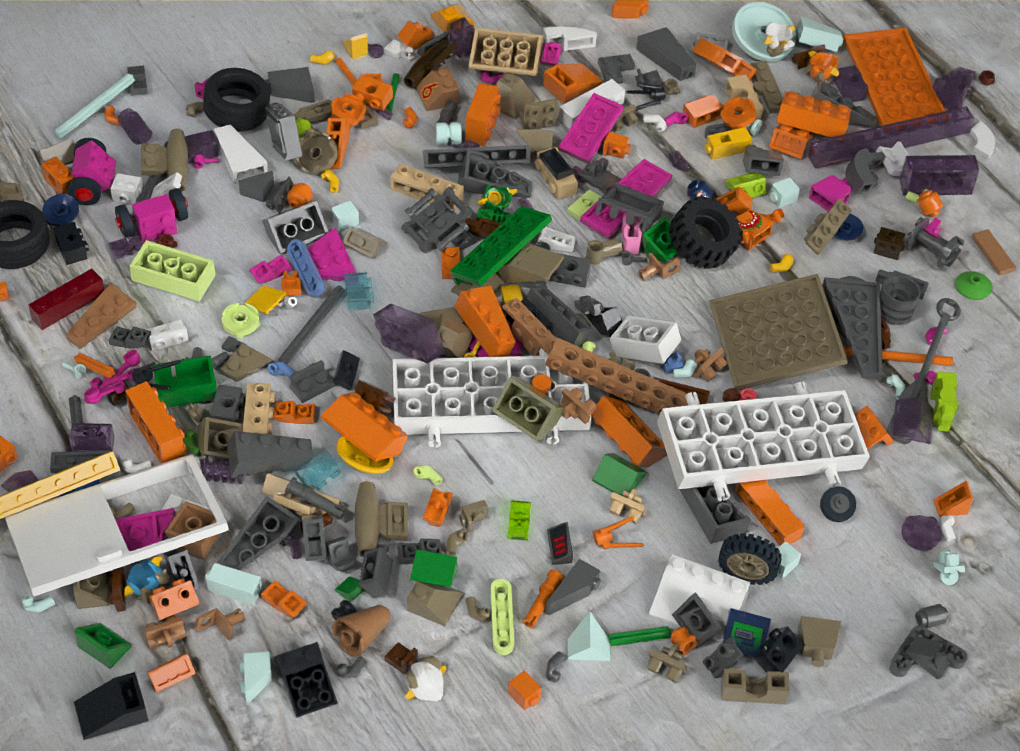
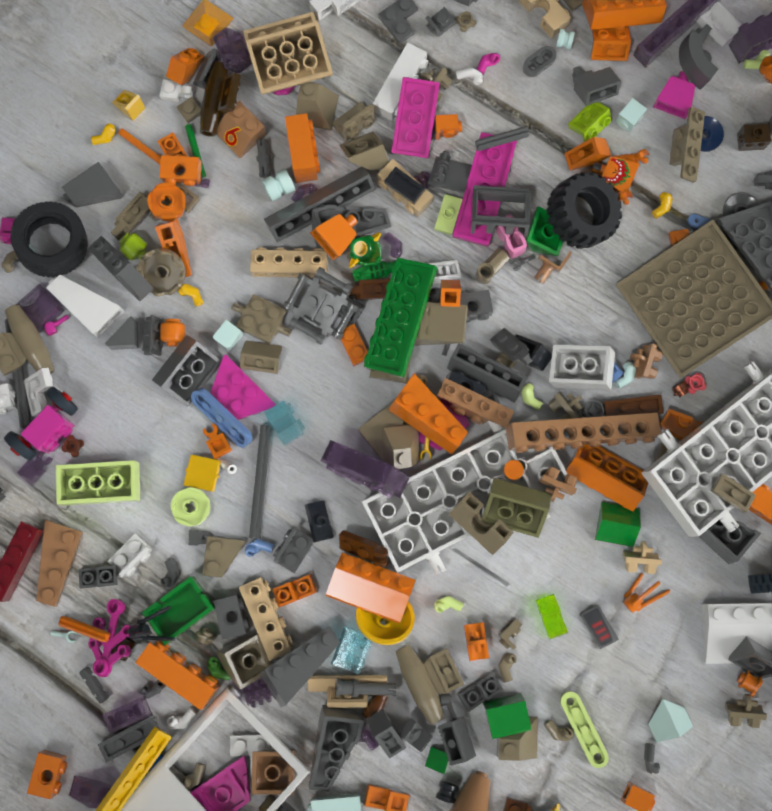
camera: 20 degrees left, 30 degrees up
(123, 436) = (149, 692): none -> dark grey arm
(219, 359) = (188, 571): dark grey arm -> none
(269, 271) = (188, 432): dark pink slope -> none
(375, 50) = (148, 101): clear purple piece -> none
(381, 217) = (261, 319): none -> dark tan plate
(402, 65) = (189, 110): none -> dark tan plate
(411, 118) = (231, 177): orange arm -> none
(476, 170) = (335, 234): none -> orange torso
(494, 416) = (490, 536): none -> dark tan arch
(510, 292) = (431, 363): yellow slope -> none
(546, 590) = (611, 684): orange pin -> none
(551, 53) = (330, 29): dark pink bracket -> none
(554, 242) = (450, 293): none -> orange brick
(570, 81) = (366, 59): orange slope -> none
(574, 587) = (633, 669): dark grey slope -> none
(639, 635) = (708, 692): green axle -> none
(656, 93) = (455, 38): black plant -> none
(659, 166) = (502, 138): none -> dark grey axle
(678, 162) = (513, 119): clear purple arm -> none
(699, 188) = (553, 154): dark blue head -> none
(703, 110) = (511, 40): orange brick -> none
(727, 143) = (552, 74): yellow brick -> none
(732, 455) = (733, 493): none -> dark tan plate
(742, 120) = (551, 24): orange plate -> none

